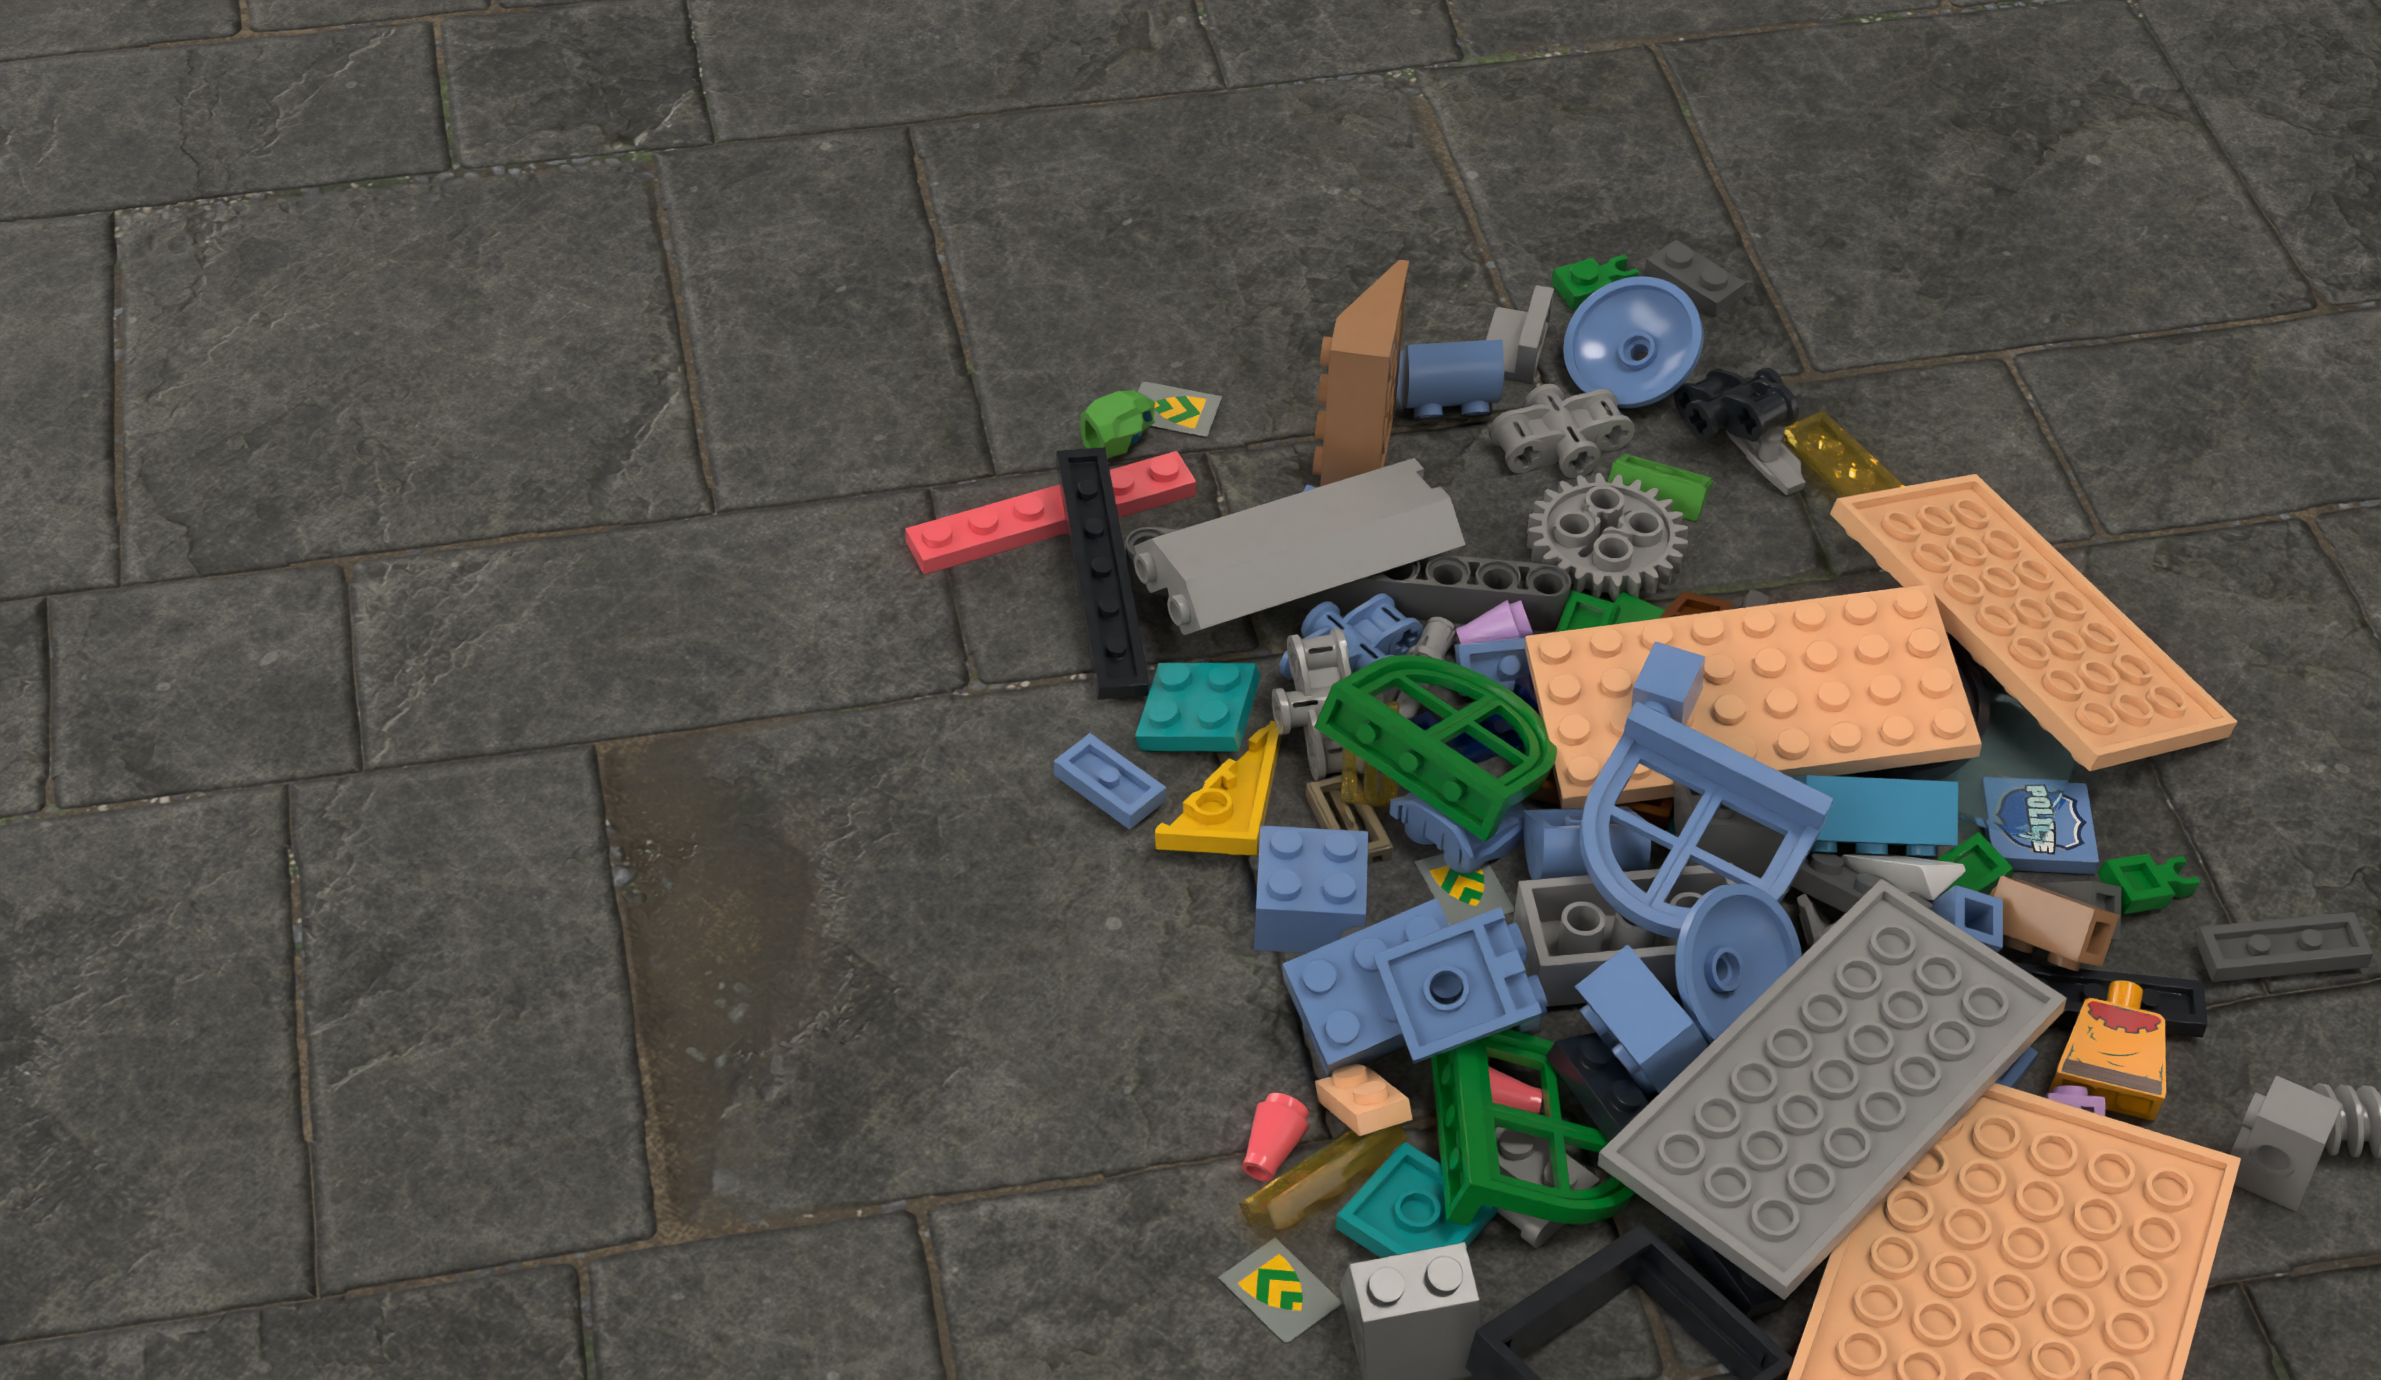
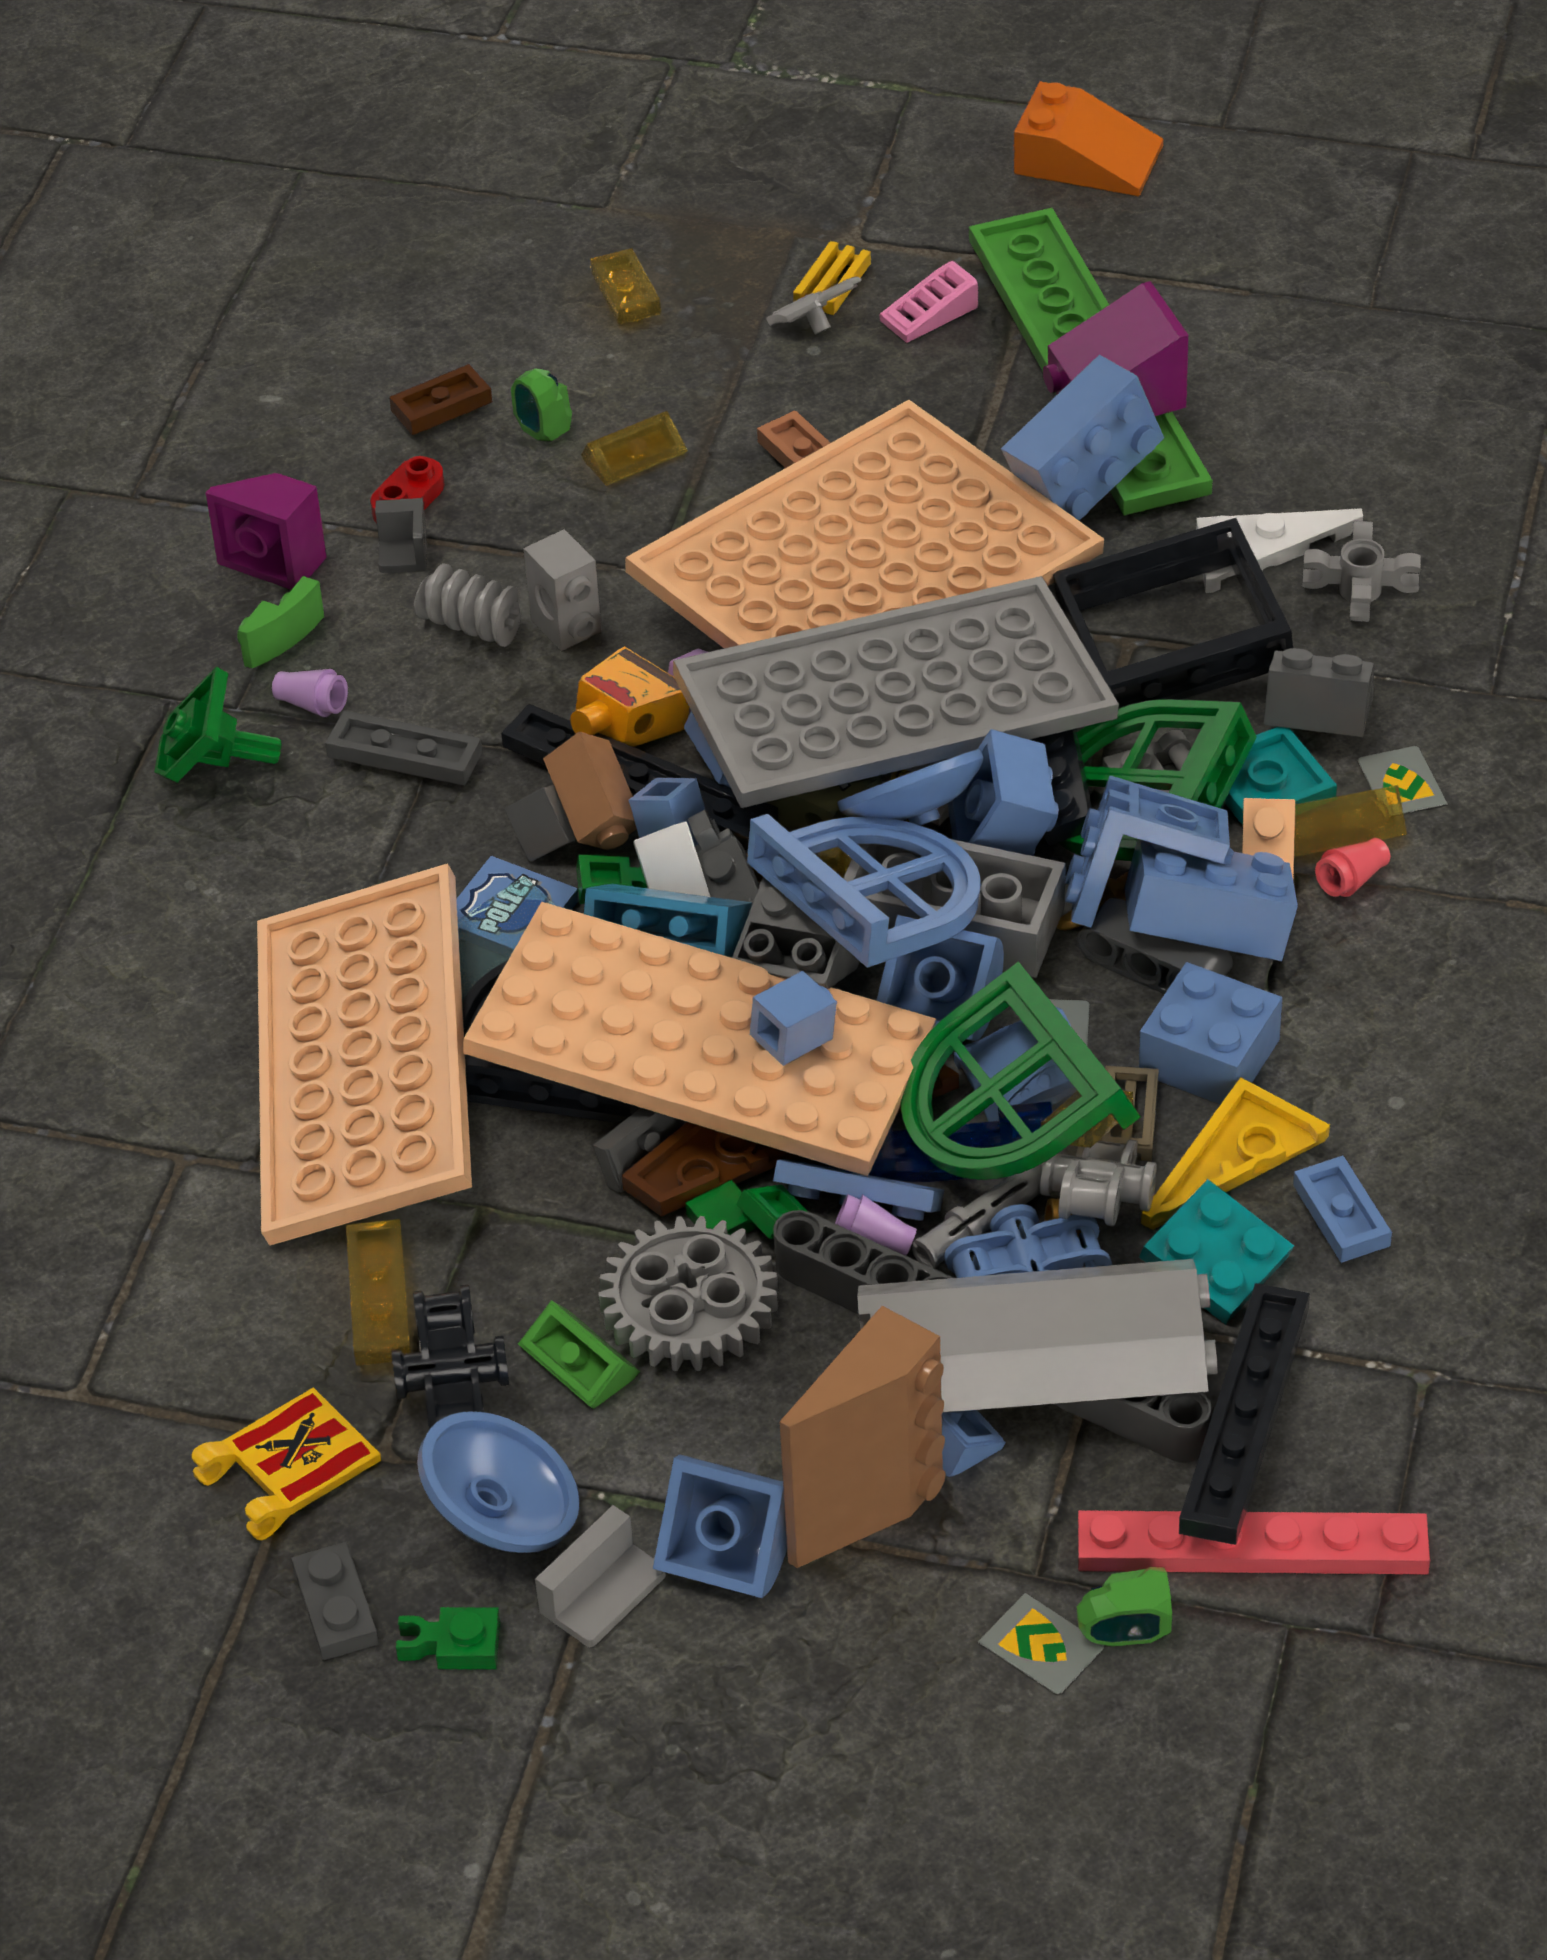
camera: 150 degrees left, 0 degrees up
(1561, 430) = (640, 1432): light grey axle -> none
(1808, 355) = (291, 1455): none -> yellow flag
(2145, 883) = (469, 829): green plate -> none

